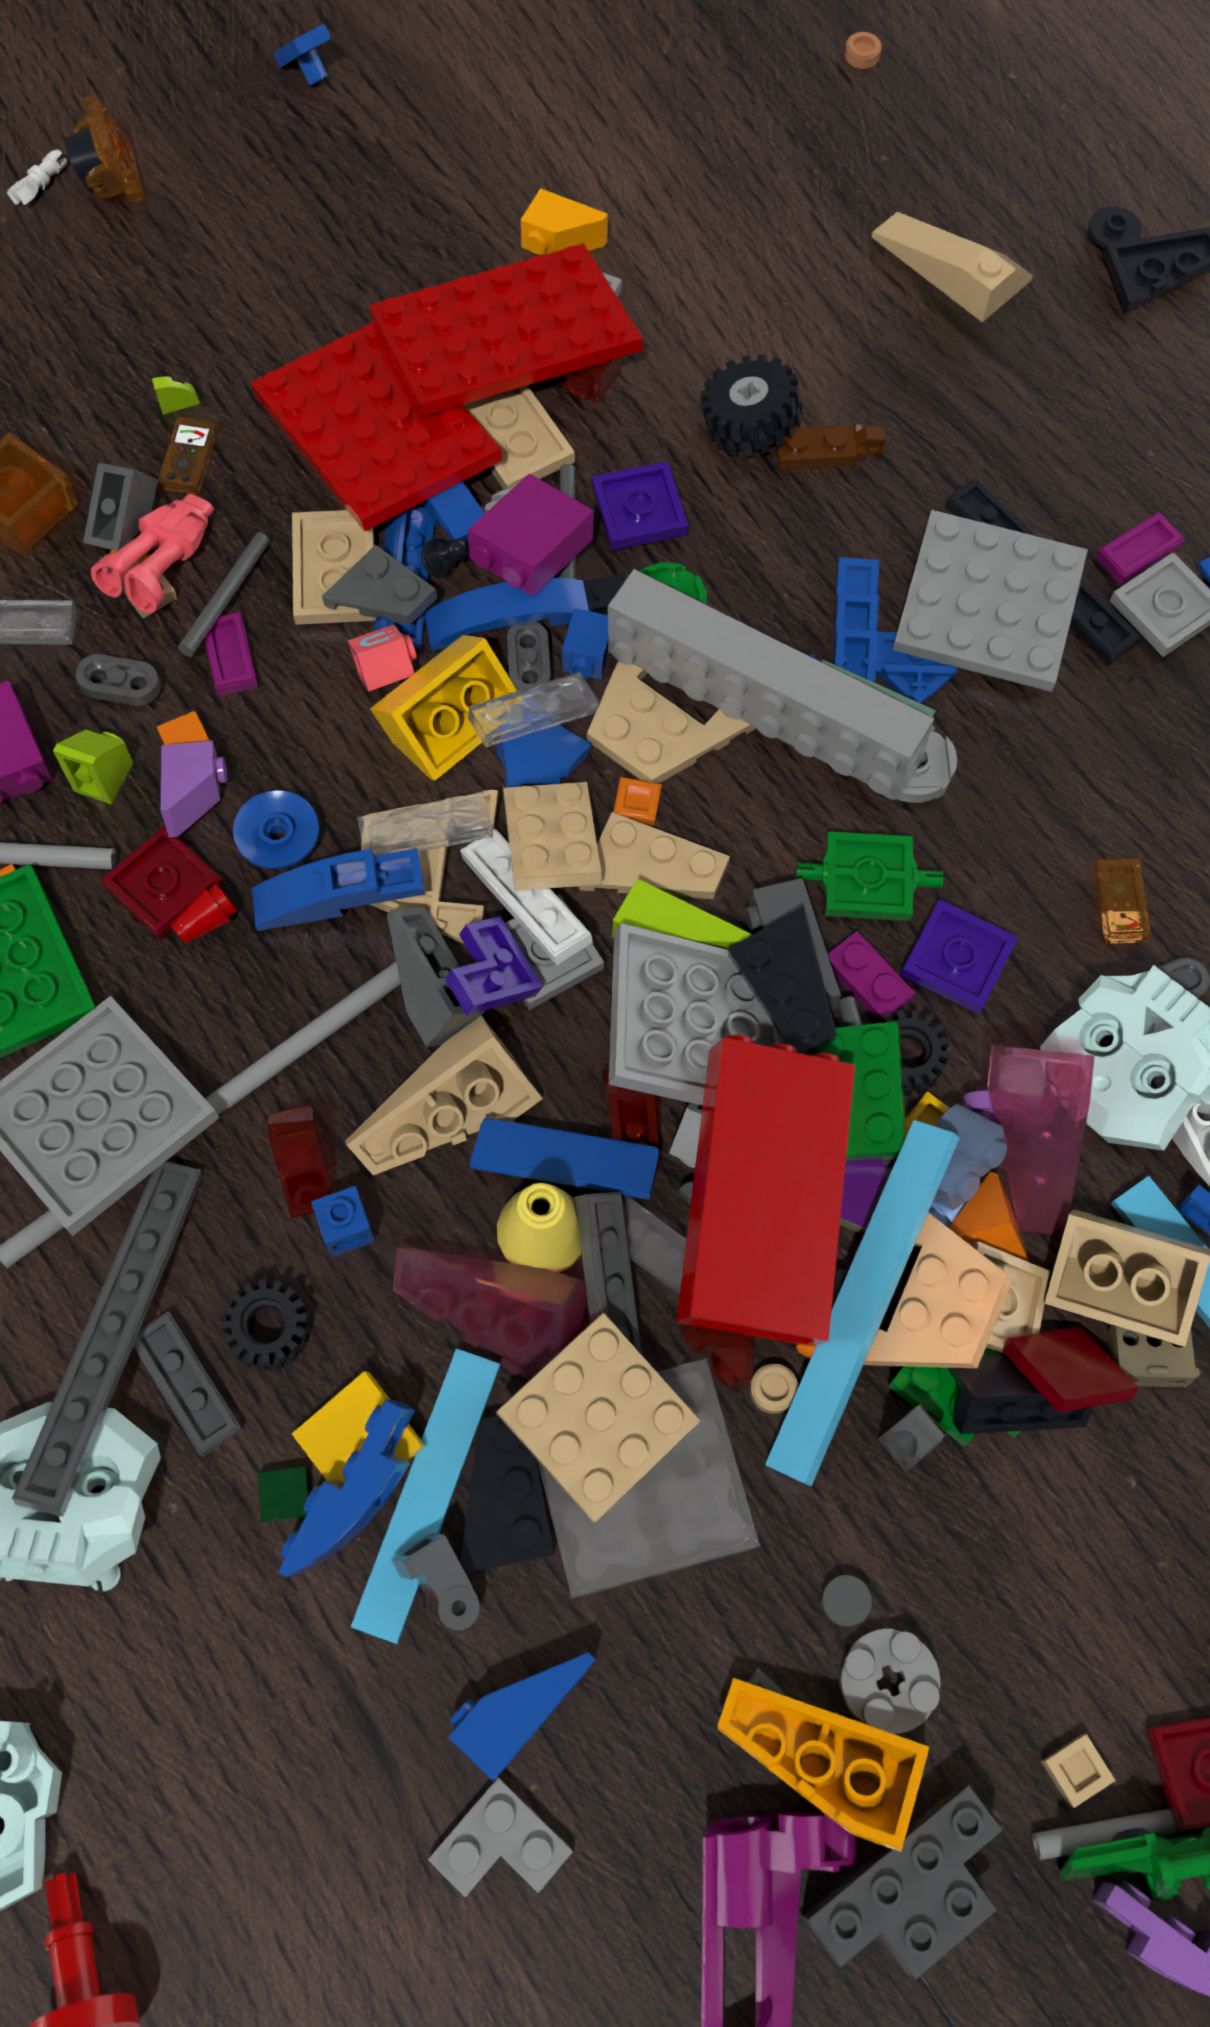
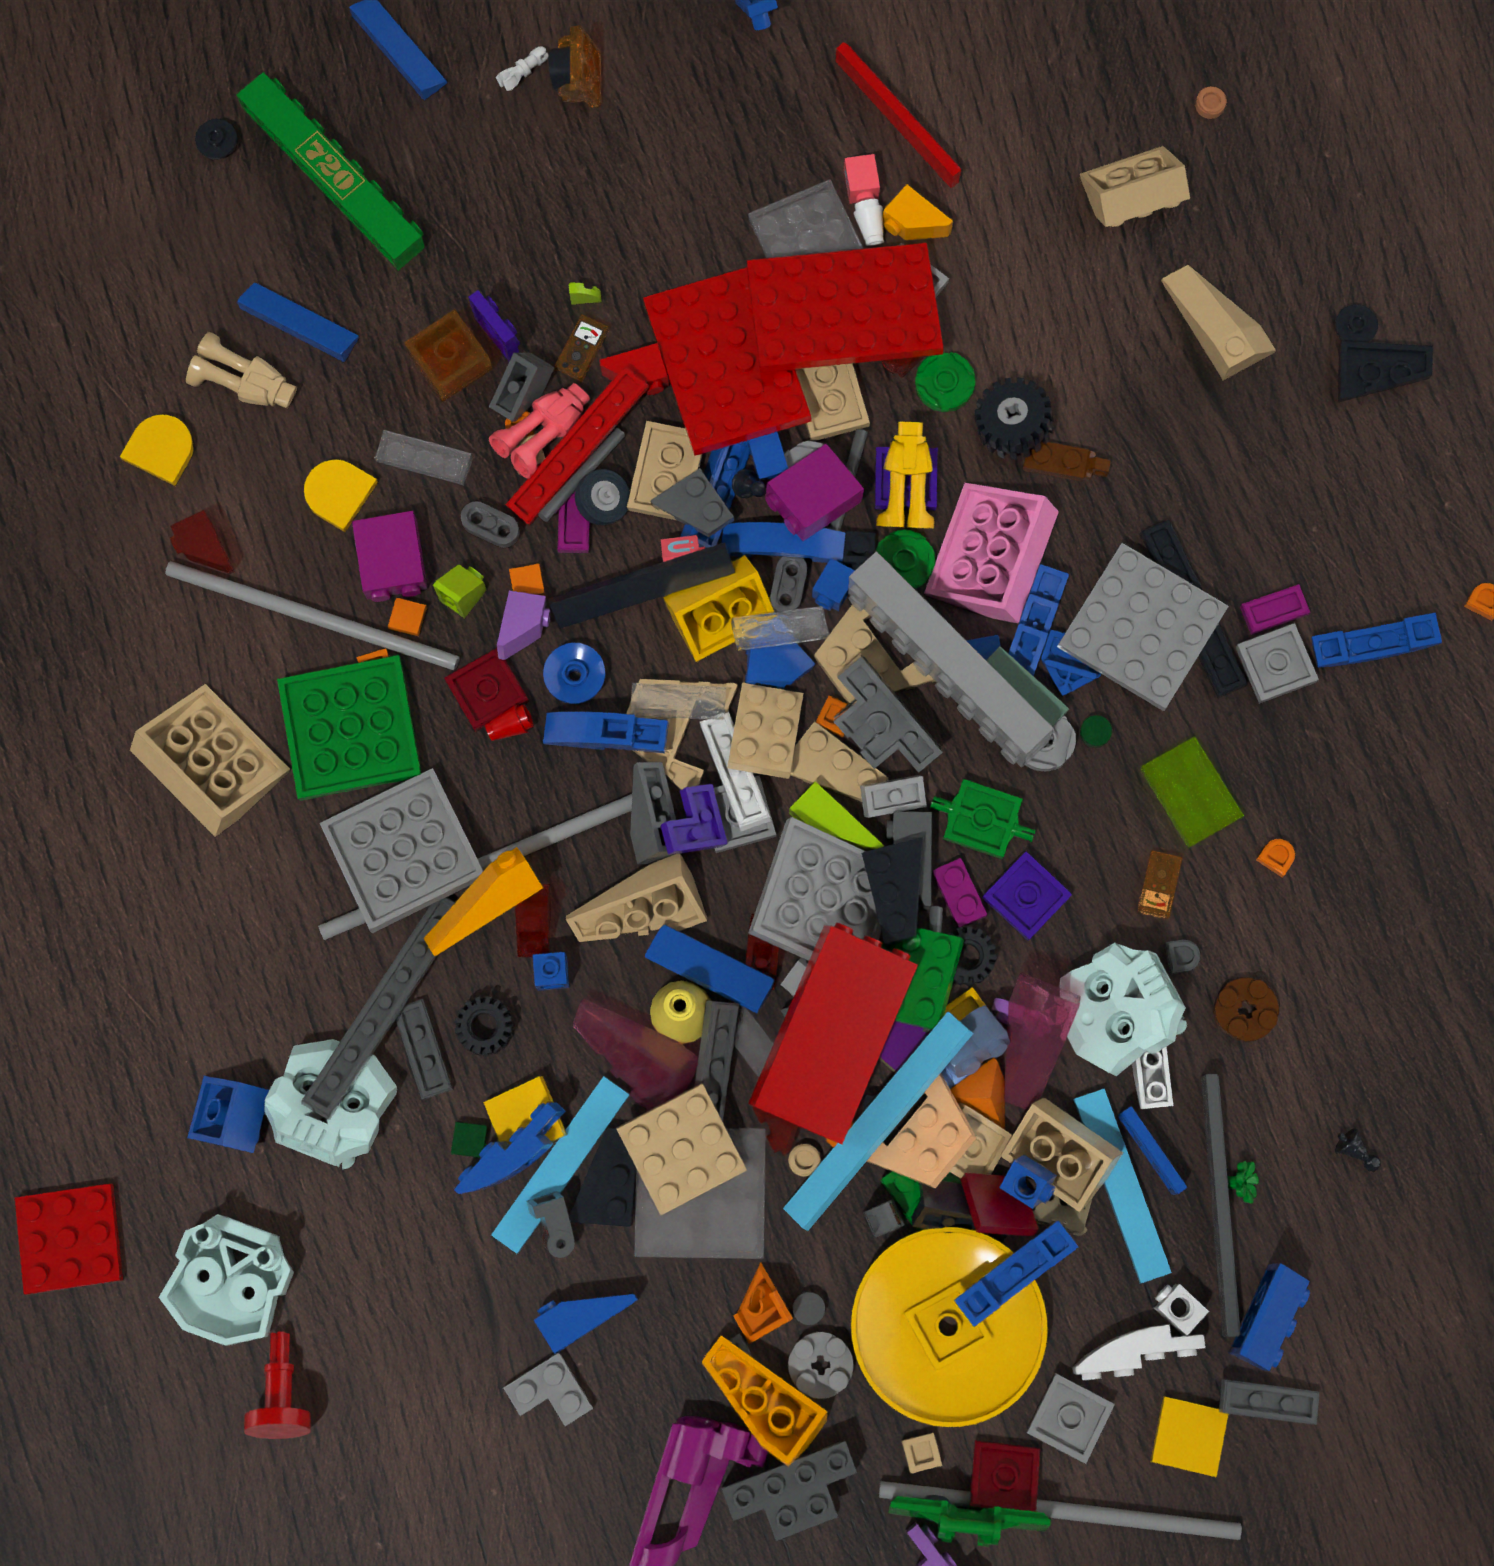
camera: 20 degrees right, 10 degrees up
(32, 818) = (407, 617): none -> orange tile
(63, 442) = (499, 331): none -> dark purple plate
(210, 557) = (578, 444): none -> red tile
(235, 1127) = (493, 893): none -> light orange wedge
(258, 612) = (602, 497): none -> black wheel
(264, 460) = (644, 362): none -> red slope
(337, 698) = (642, 585): none -> black tile
(426, 257) = (805, 224): none -> clear plate
(483, 201) = (861, 178): none -> coral brick
(505, 239) = (870, 221): none -> white cone
(507, 130) = (898, 115): none -> red tile
(640, 471) = (907, 457): none -> yellow piece
(652, 394) = (945, 382): none -> green tile
(701, 779) = (881, 720): none -> dark grey piece
(740, 874) = (893, 796): none -> light grey plate
(777, 556) = (992, 551): none -> bright pink slope
(780, 1619) = (761, 1308): none -> orange slope
(811, 143) = (1136, 186): none -> tan slope
(974, 738) = (1095, 731): none -> dark green tile
(1083, 1334) = (1016, 1186): none -> blue brick
(1120, 779) = (1191, 792): none -> clear neon green plate
(1129, 1556) = (935, 1375): none -> yellow dish
(1131, 1456) = (1016, 1273): none -> blue slope

